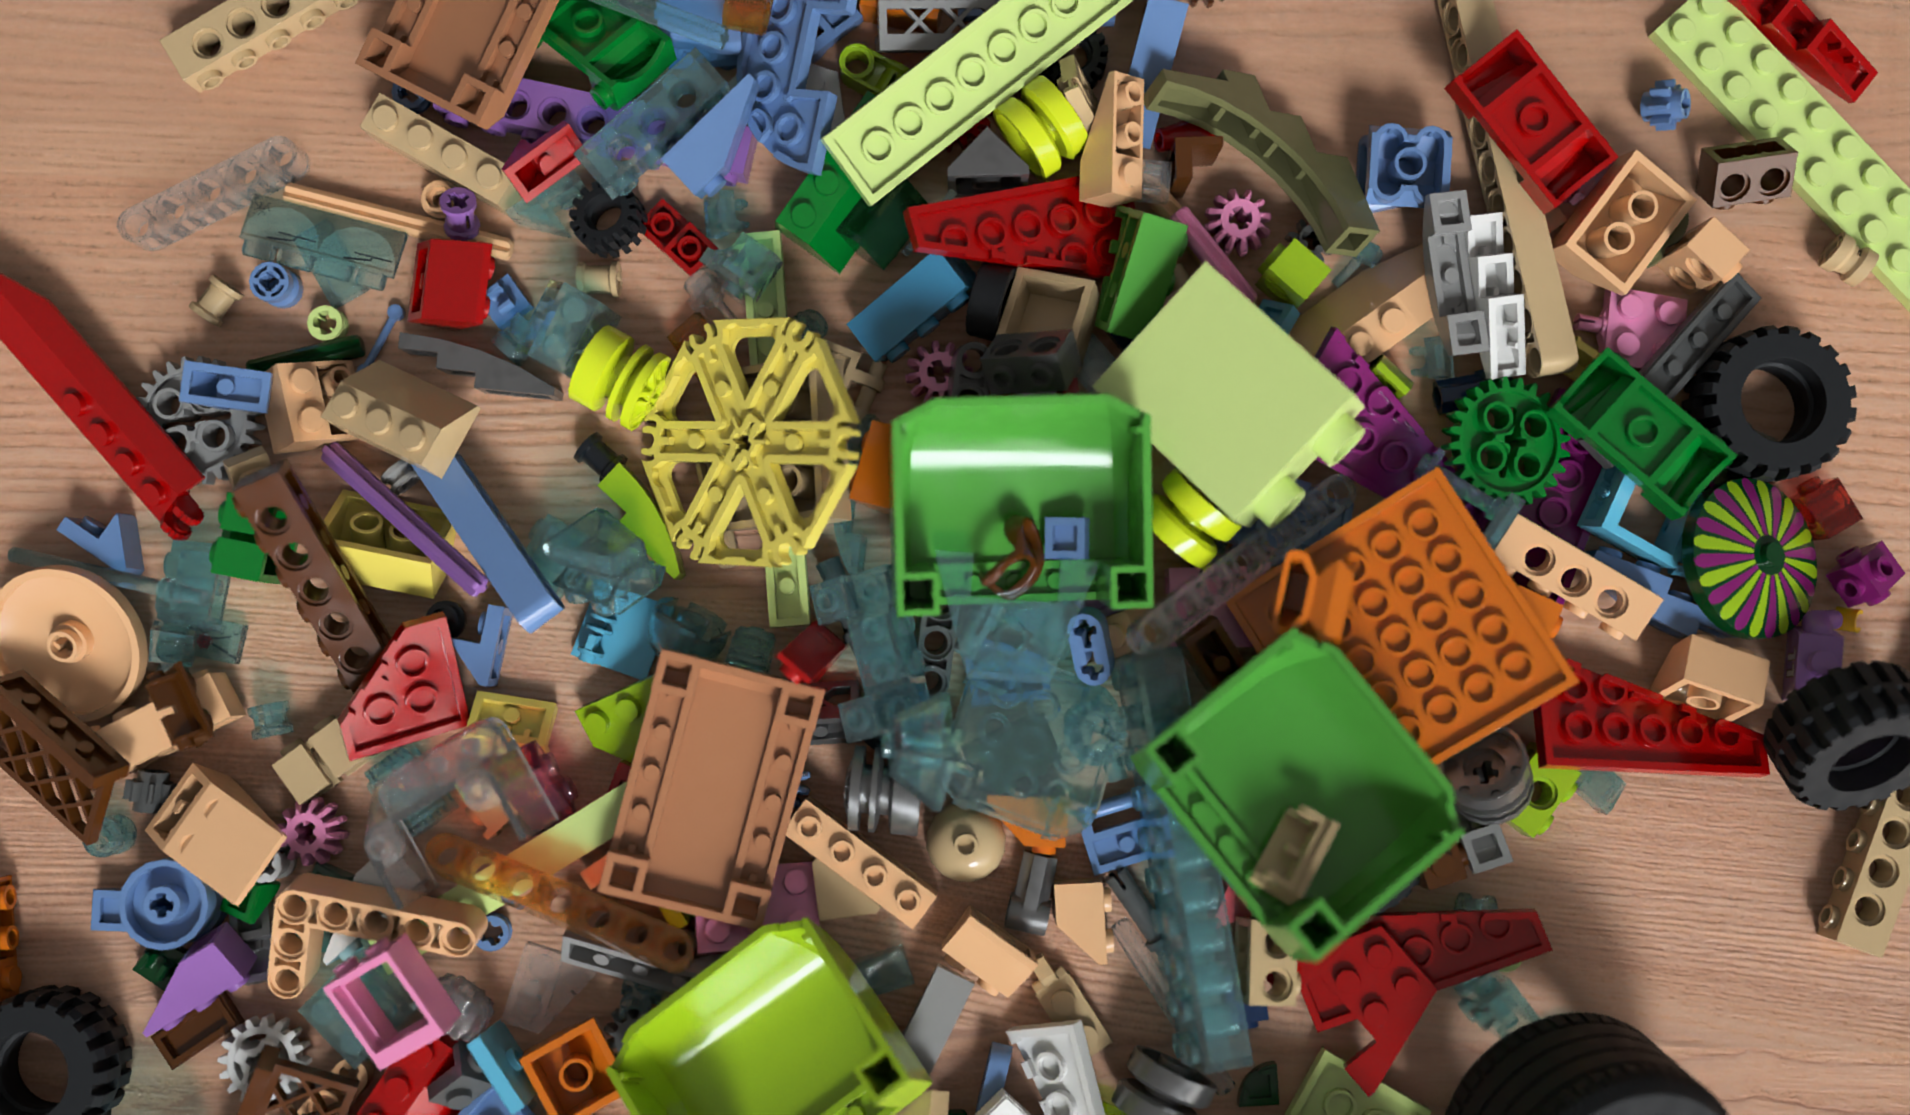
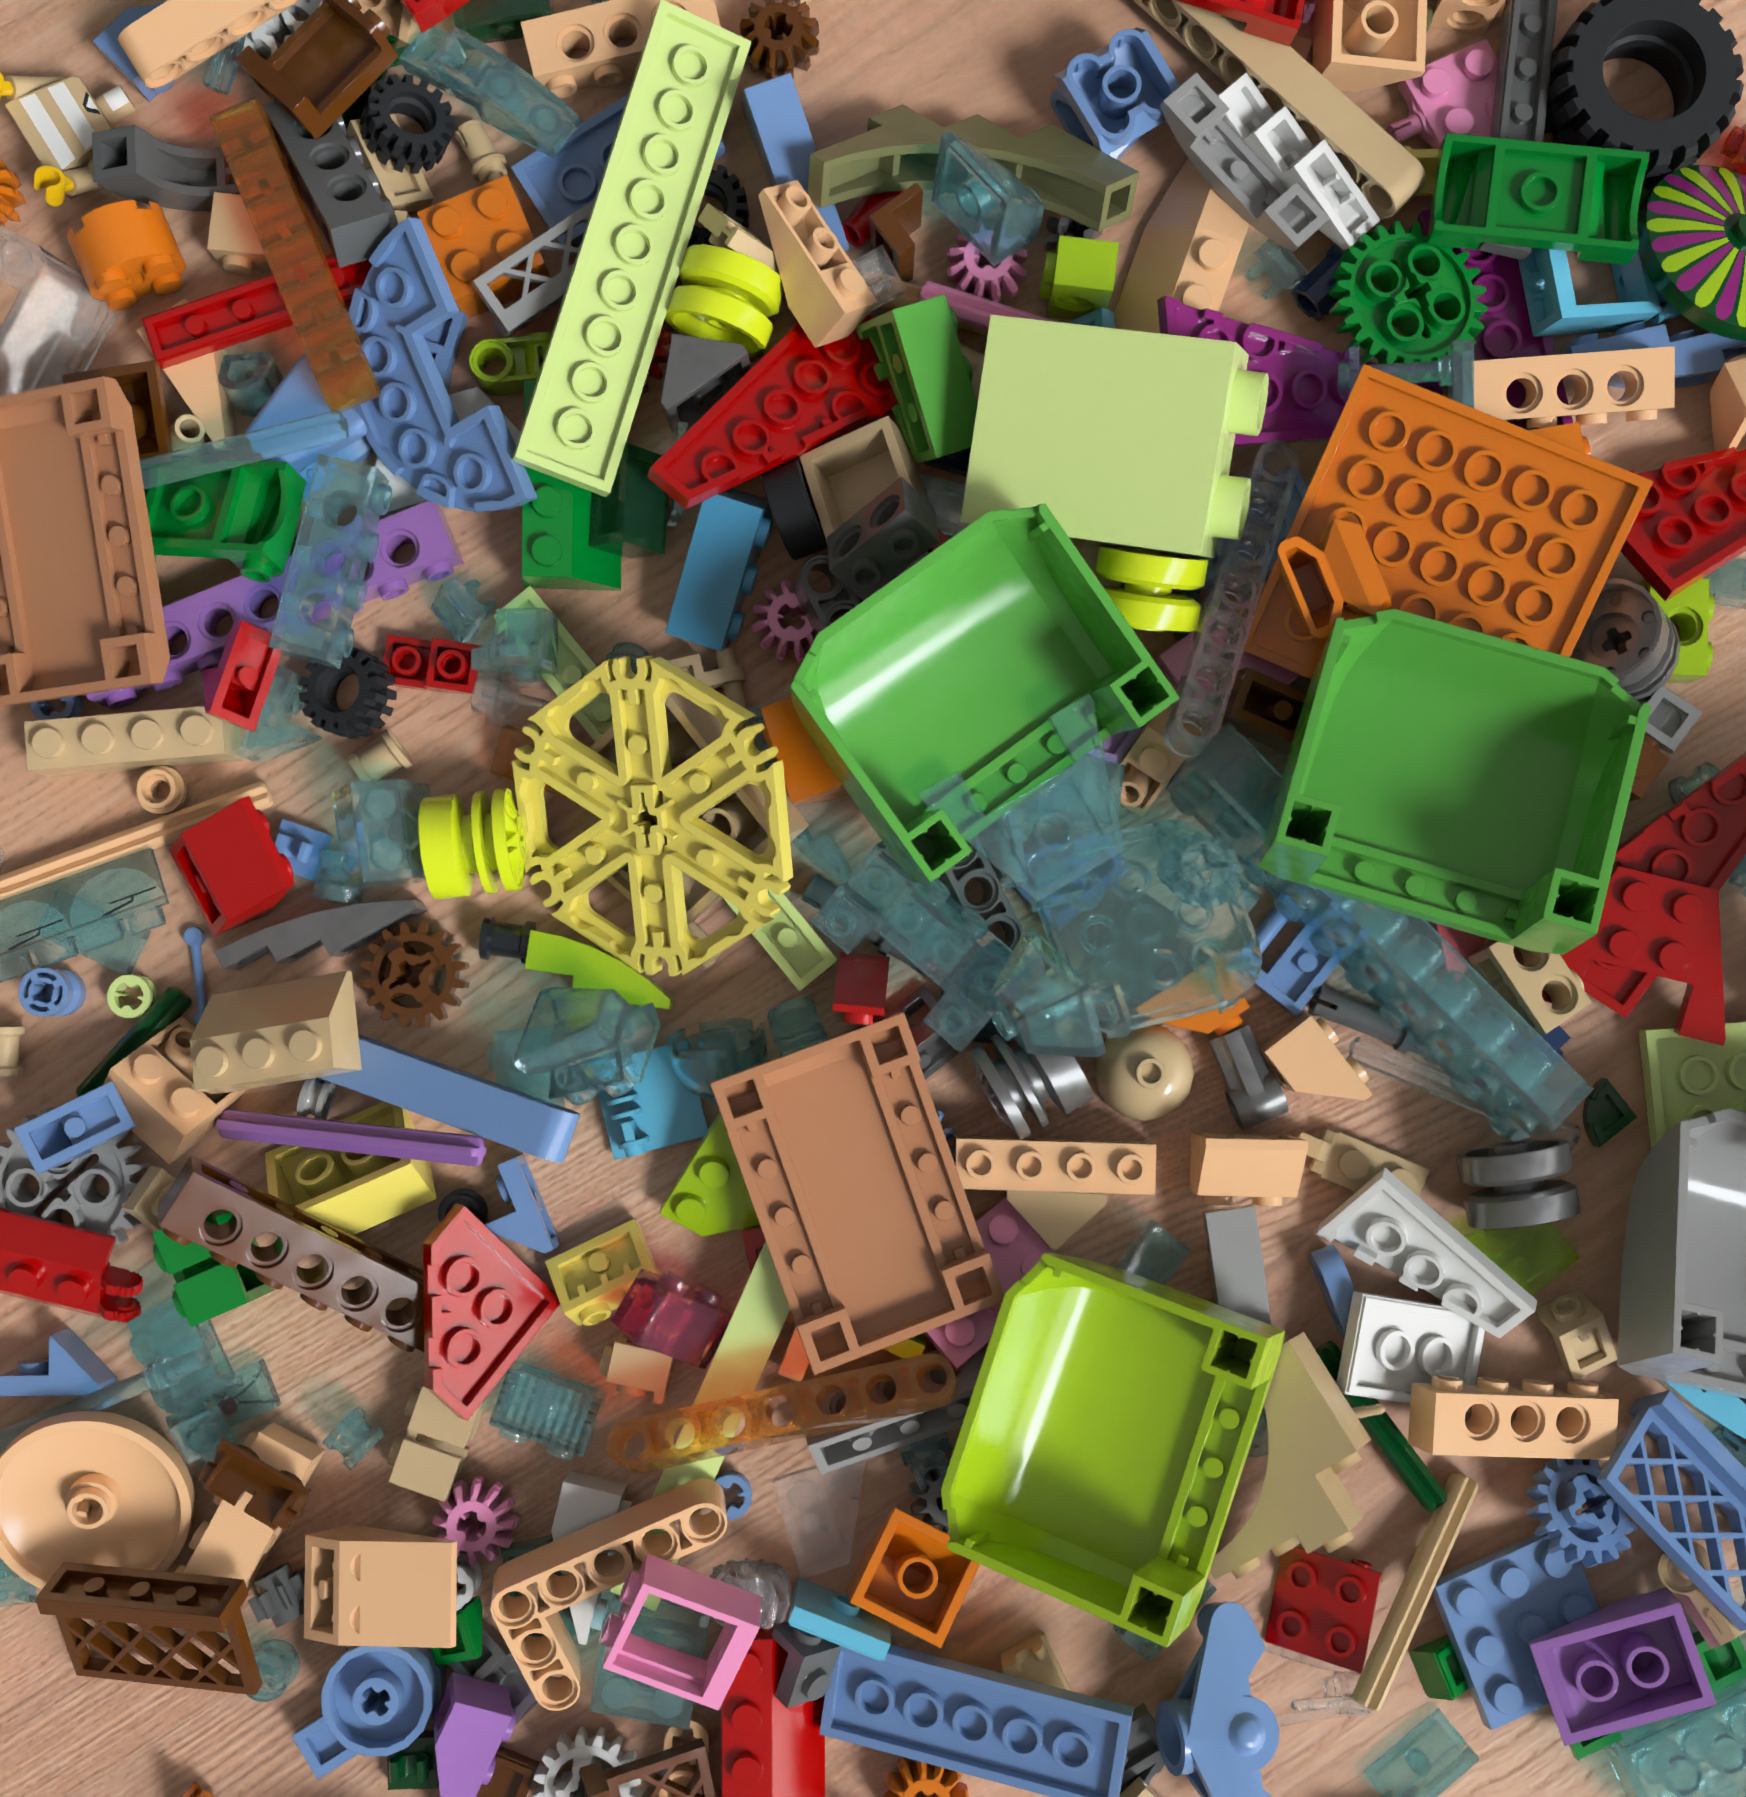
camera: 35 degrees left, 0 degrees up
(462, 212) = (193, 785): medium lavender bush -> none
(486, 771) = (609, 1328): clear windscreen -> none
(523, 454) = (402, 957): none -> reddish brown gear
(710, 147) = (403, 546): medium blue slope -> none
(1027, 545) = (998, 719): reddish brown piece -> none
(1066, 538) = (1040, 692): medium blue plate -> none
(1100, 645) = (1145, 779): medium blue beam -> none
(1262, 179) = (985, 200): none -> clear light blue slope
(1294, 853) = (1491, 847): tan hinge -> none
(1369, 256) = (1141, 211): clear light blue hand -> none
(1391, 376) = (1250, 310): lime slope -> none

